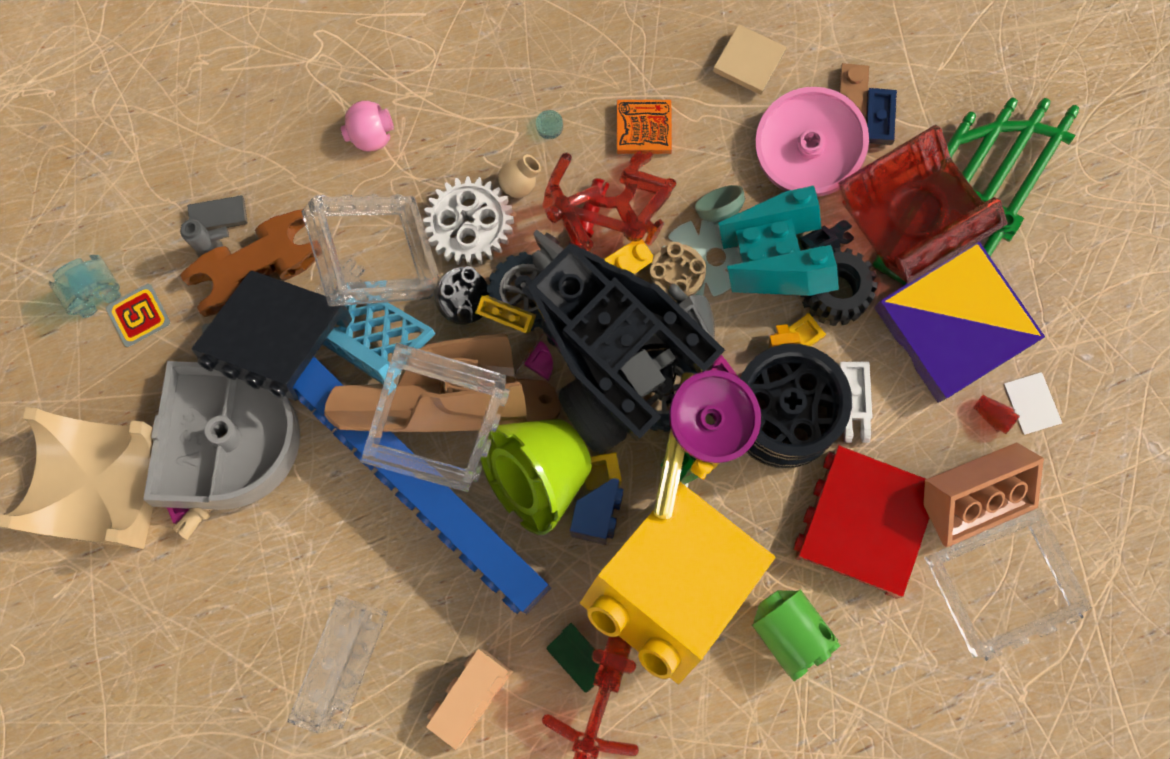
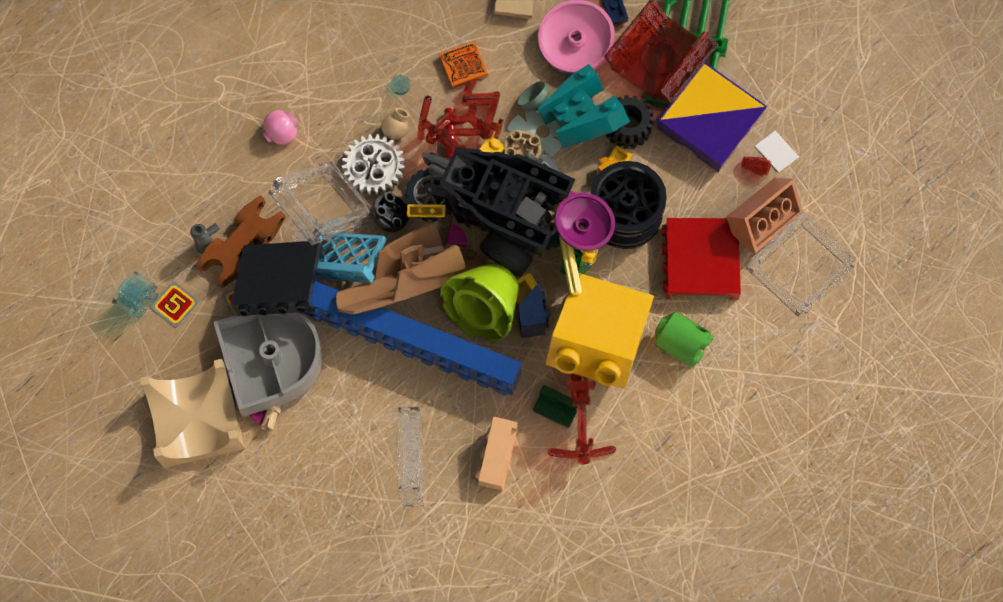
camera: 25 degrees left, 5 degrees down
(219, 212) = (206, 216): dark grey tile -> none
(445, 370) = (383, 249): clear window -> none
(826, 236) = (609, 92): black plate -> none
(859, 380) = (671, 188): white hinge -> none

